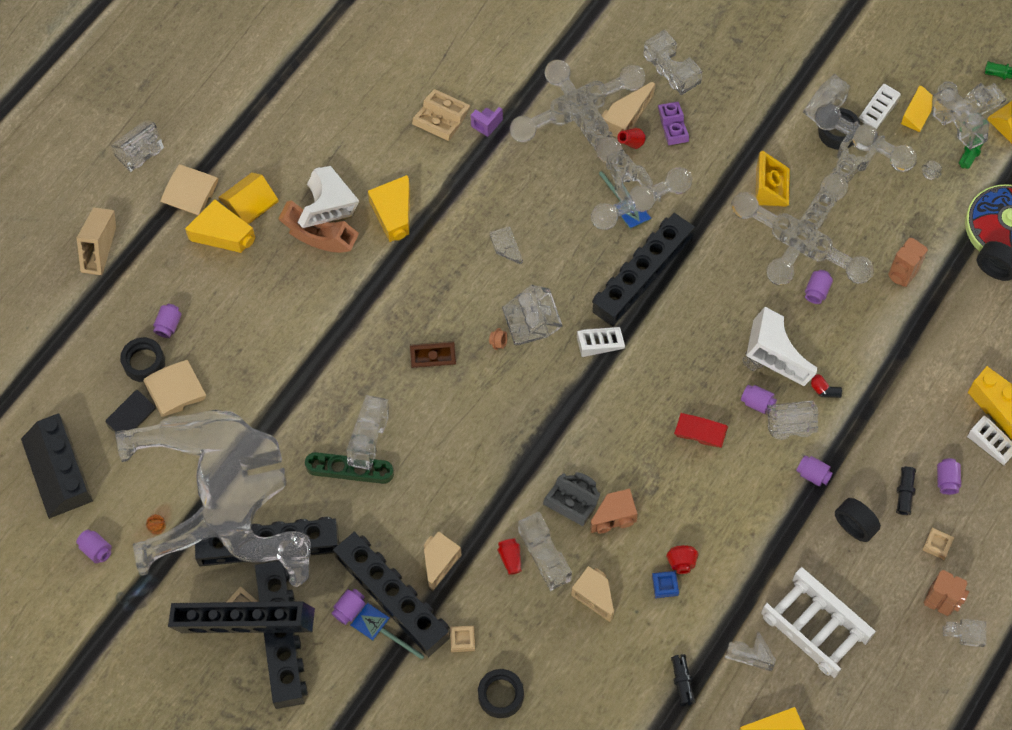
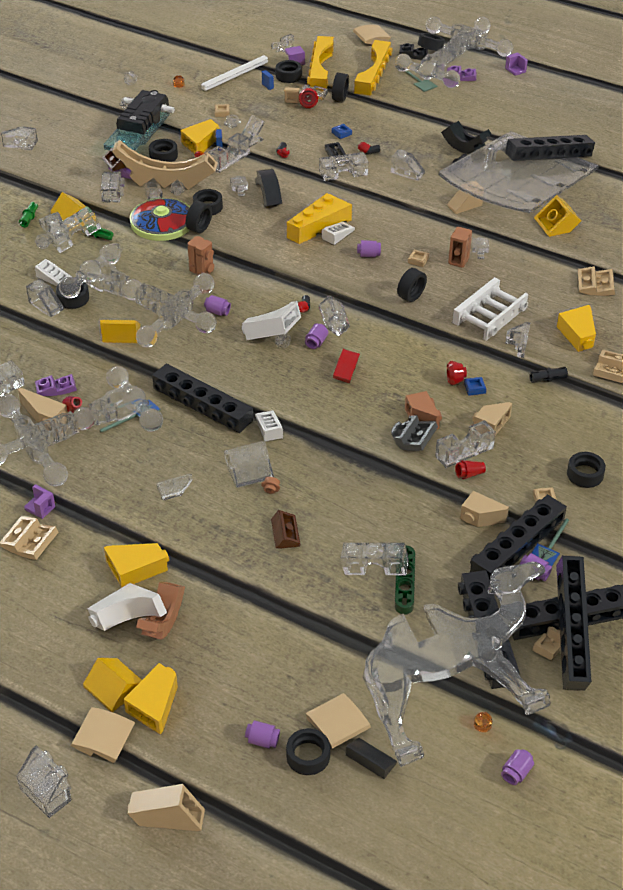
camera: 95 degrees left, 20 degrees down
(55, 466) = (437, 813): black slope -> none
(814, 470) = (373, 309): medium lavender brick -> none
(906, 490) = (382, 268): black pin -> none
(918, 110) = (57, 257): yellow slope -> none

